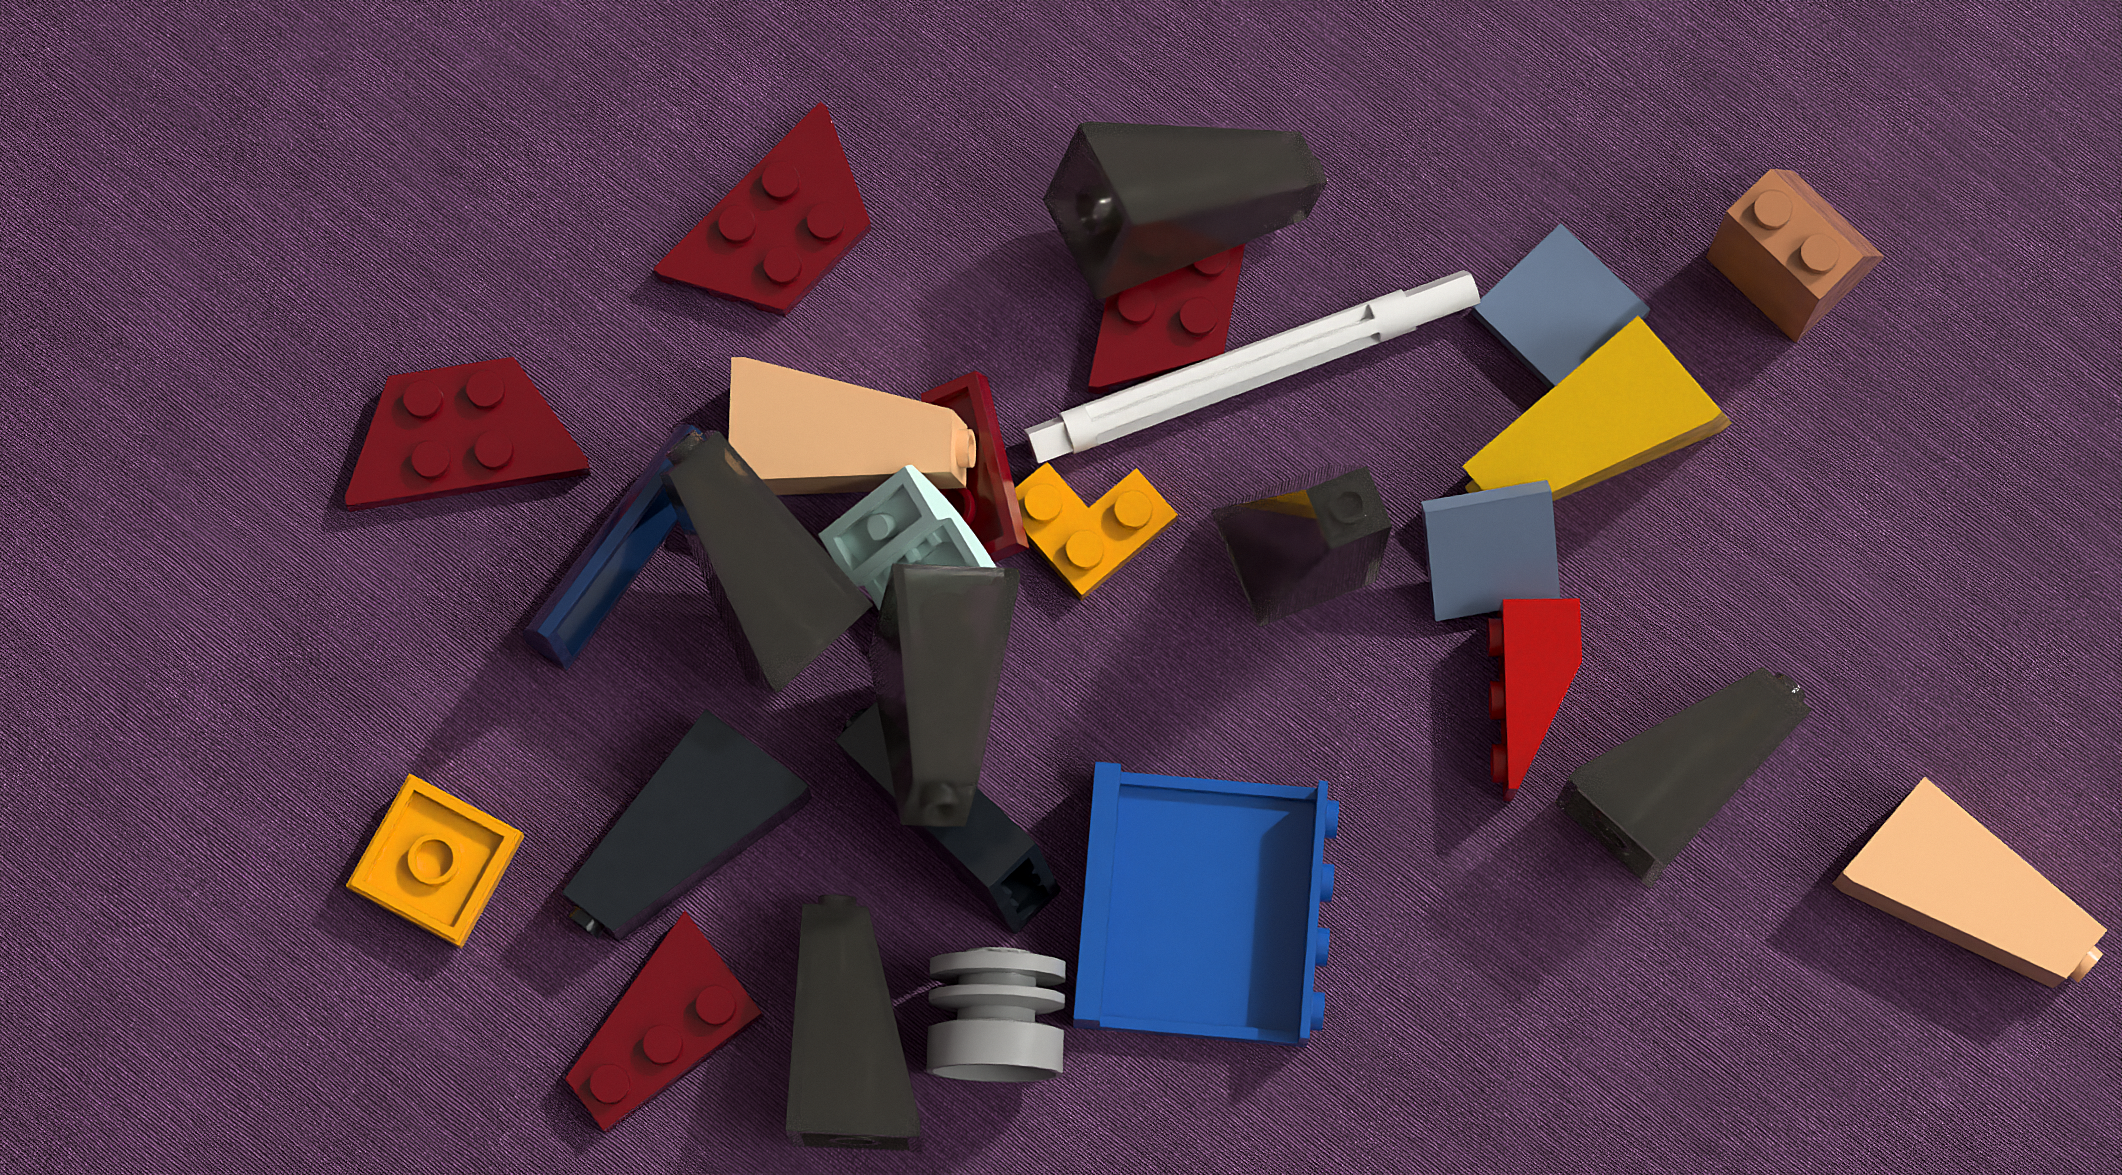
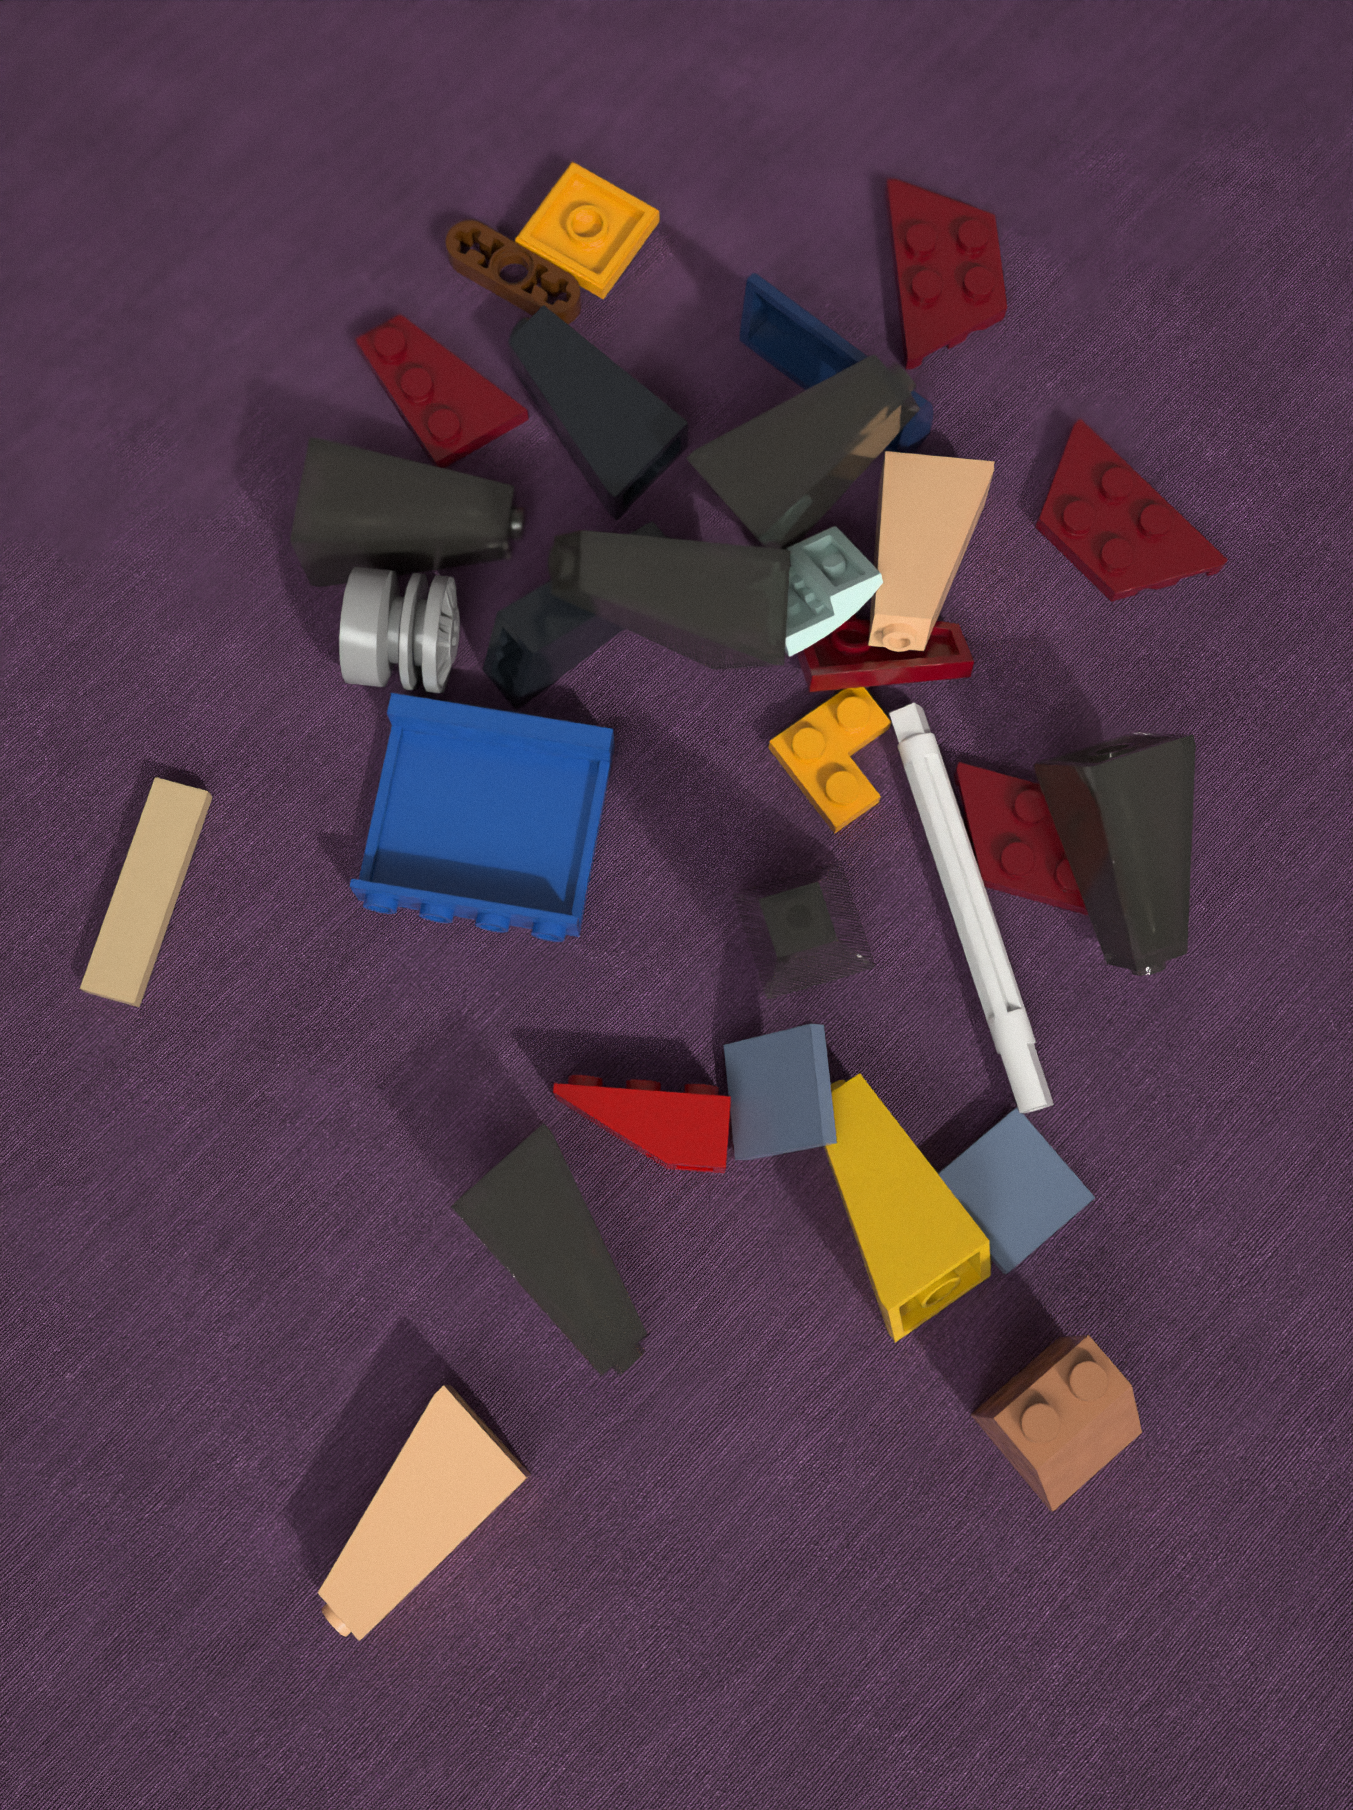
camera: 95 degrees right, 0 degrees up
(533, 912) = (502, 252): none -> reddish brown beam

